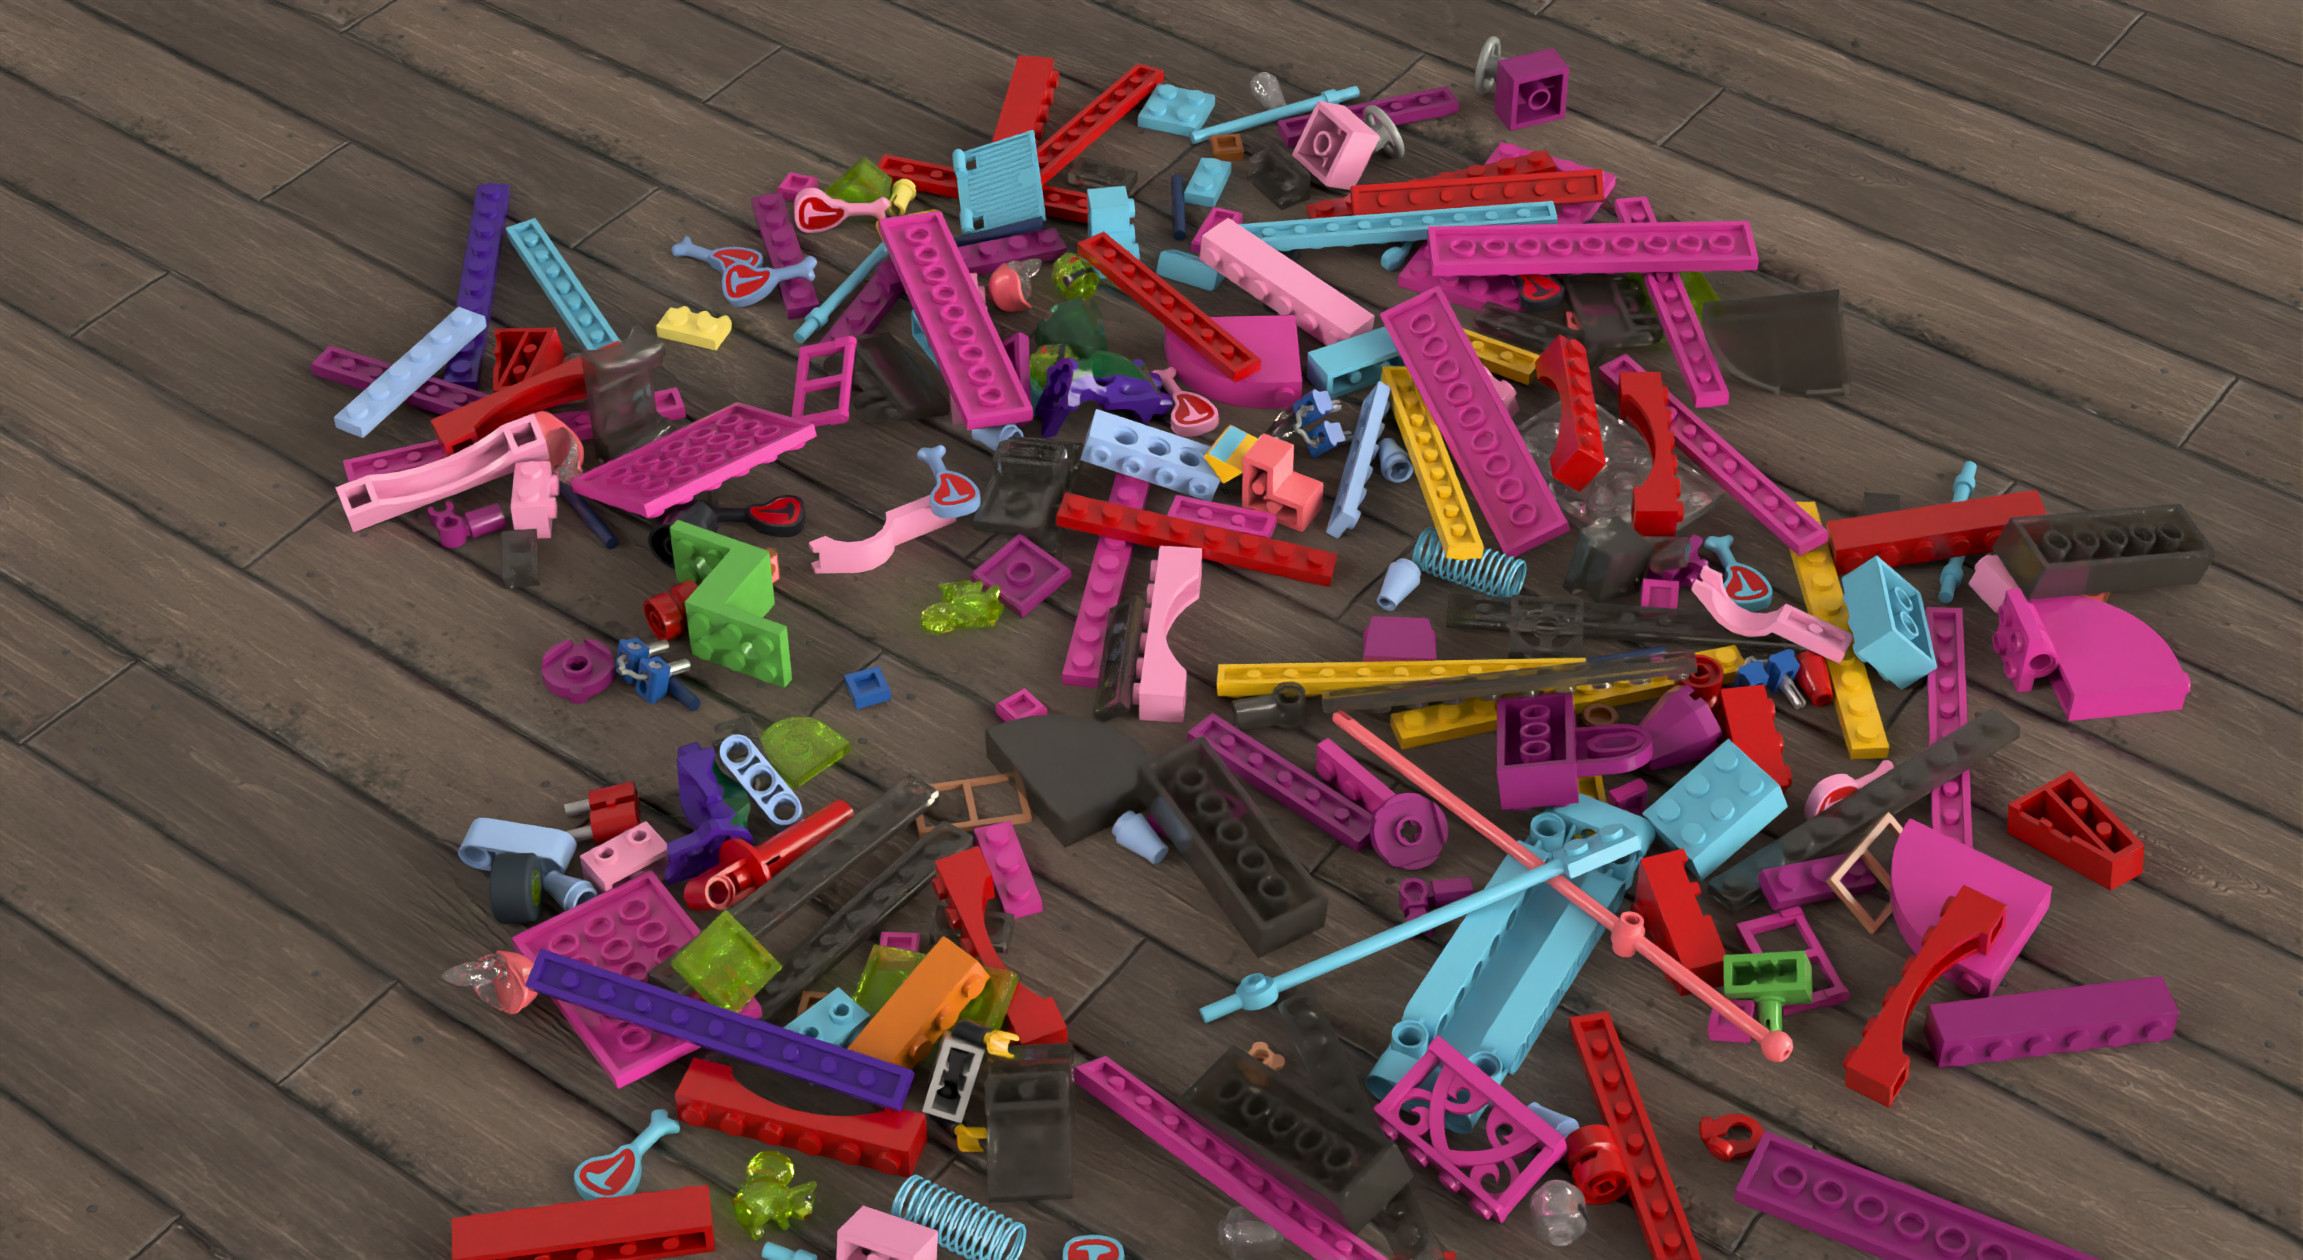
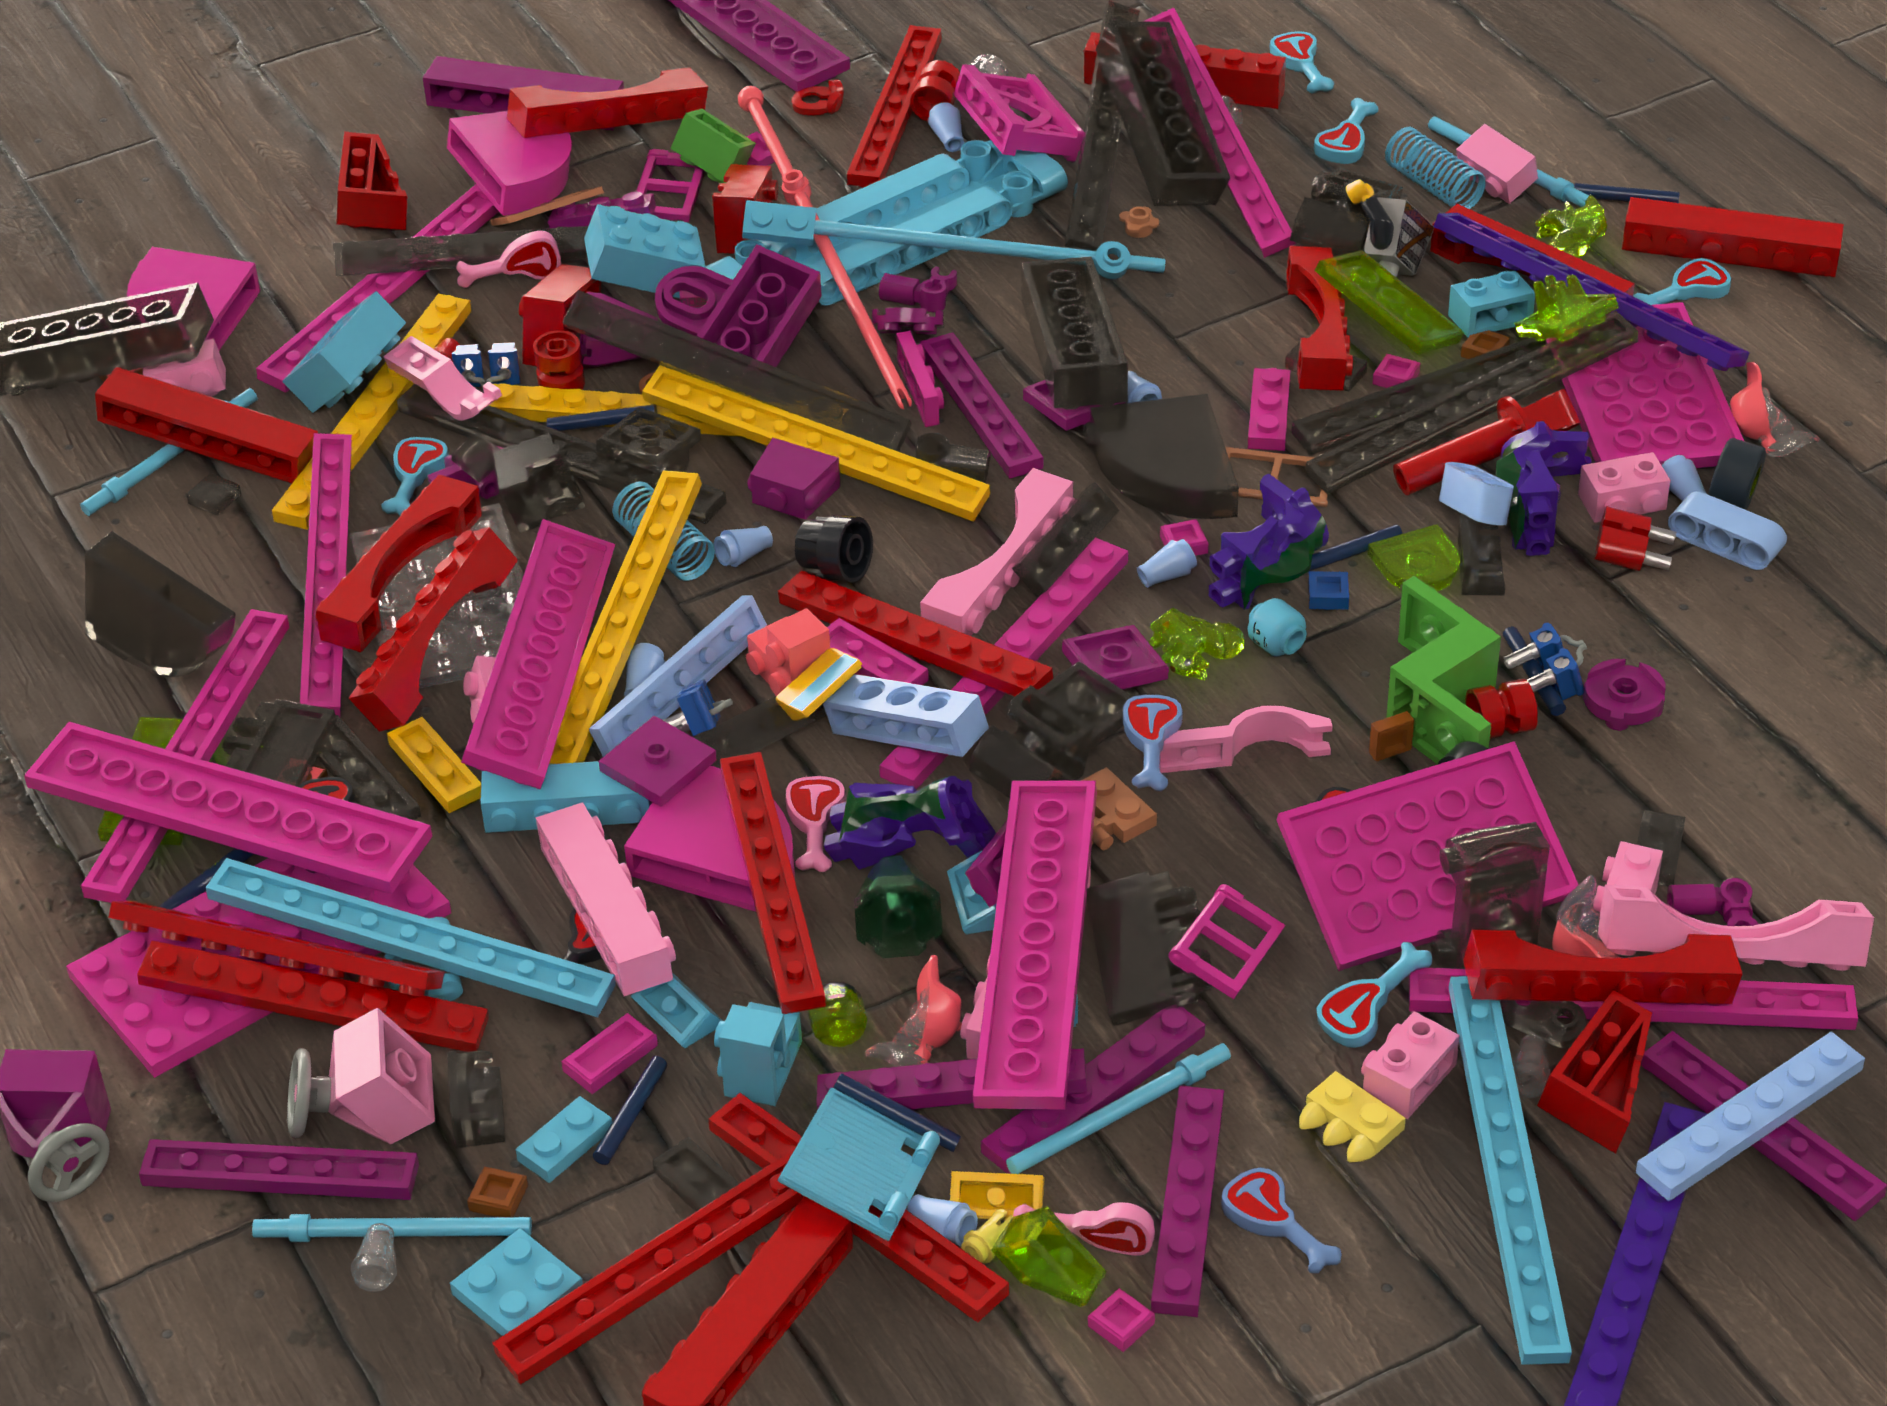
camera: 155 degrees left, 0 degrees up
(678, 347) = (1410, 1063): none -> bright pink brick
(712, 380) = (1352, 1009): none -> medium azure piece
(747, 284) = (1260, 1141): medium blue piece -> none
(867, 743) = (1351, 547): none -> dark blue bar
(896, 638) = (1277, 627): none -> medium azure head
(923, 1006) = (1407, 271): orange brick -> none
(928, 682) = (1272, 551): none -> dark purple hips
(933, 196) = (946, 1217): none -> light blue cone
(961, 462) = (1118, 811): none -> nougat plate
(1019, 671) = (1168, 563): none -> light blue cone
(1046, 356) = (945, 863): clear neon green head -> none
(1311, 583) = (835, 547): none -> black piece
(1313, 365) = (657, 760): none -> magenta plate
(2023, 642) = (245, 316): dark pink plate -> none

